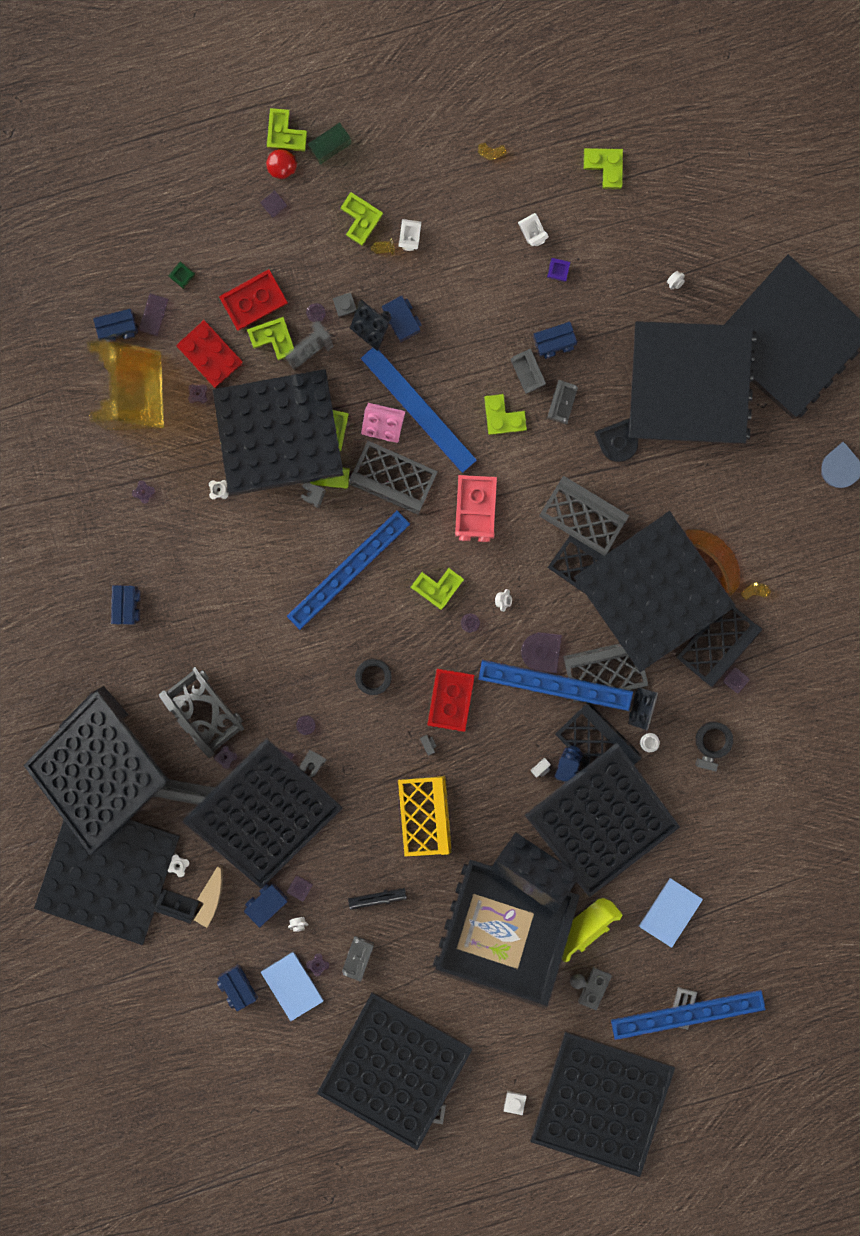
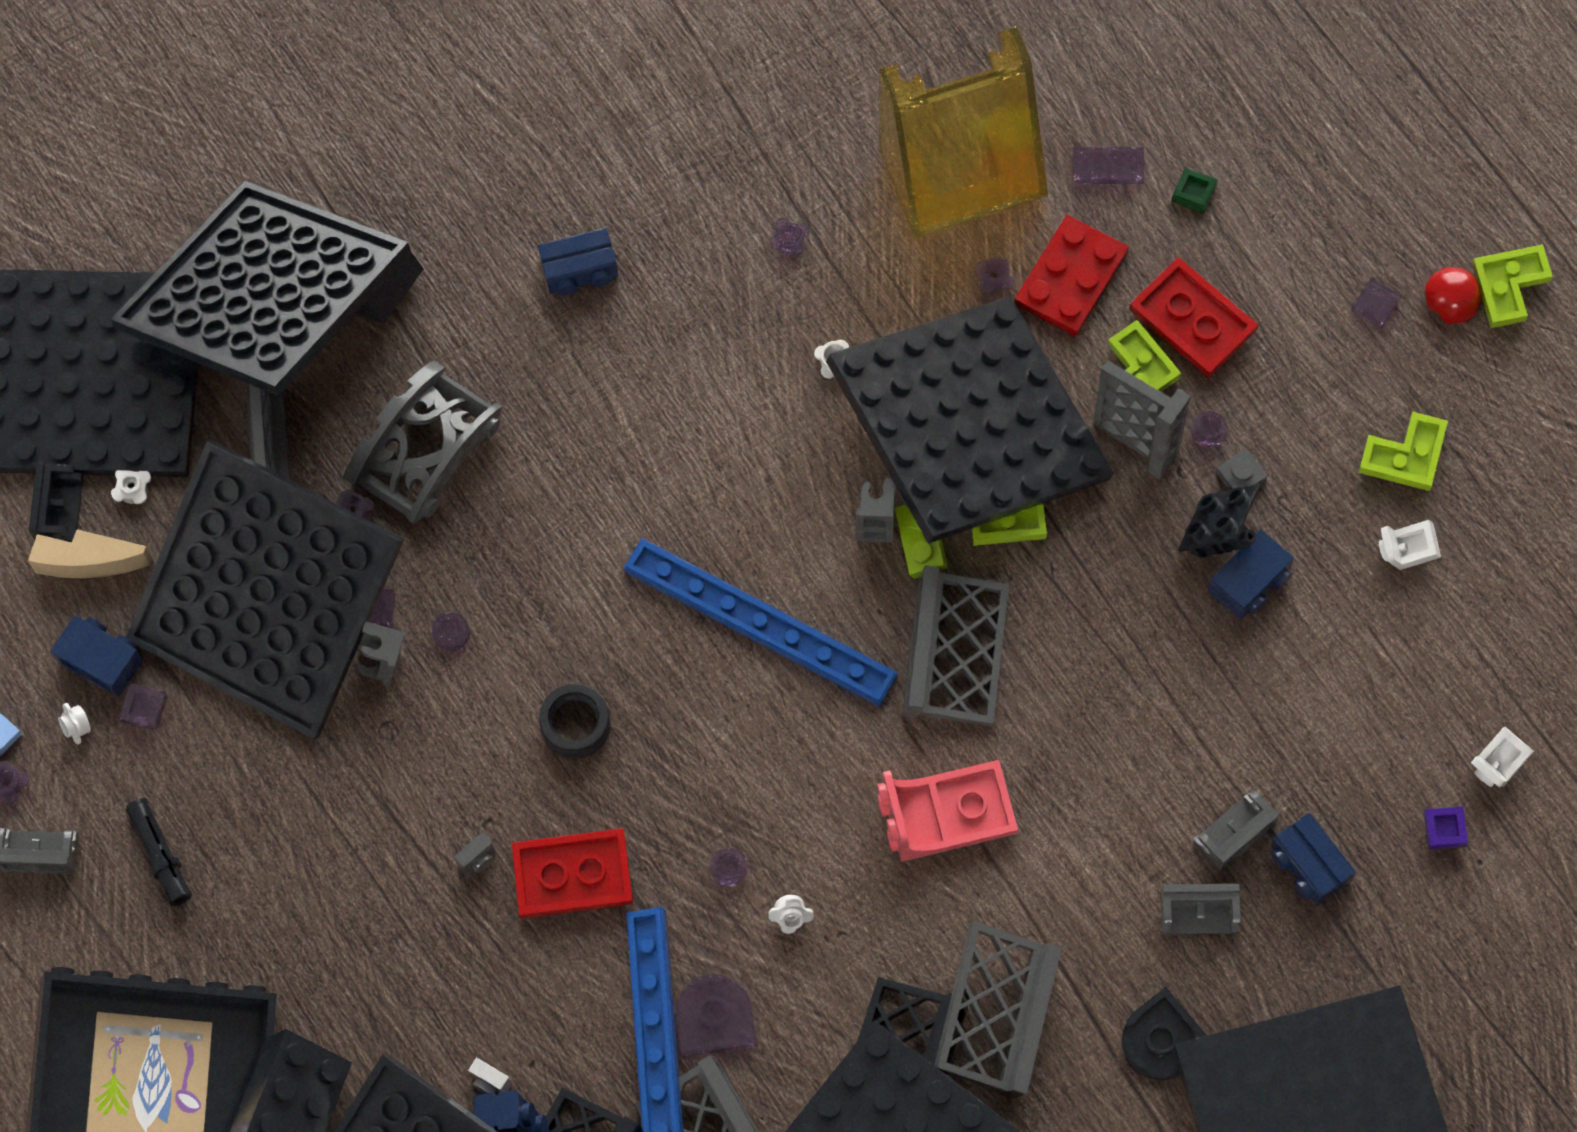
camera: 75 degrees right, 20 degrees down
(116, 326) = (1067, 109): dark blue brick -> none
(329, 143) = (1520, 360): clear green brick -> none
(382, 422) = (1051, 597): bright pink bracket -> none
(384, 247) = (1371, 510): clear yellow piece -> none
(418, 409) = (1095, 659): blue tile -> none
(439, 592) = (767, 788): lime plate -> none
(441, 816) = (355, 917): yellow fence -> none
(499, 421) = (1125, 807): lime plate -> none
(676, 280) = (1507, 1051): white plate -> none

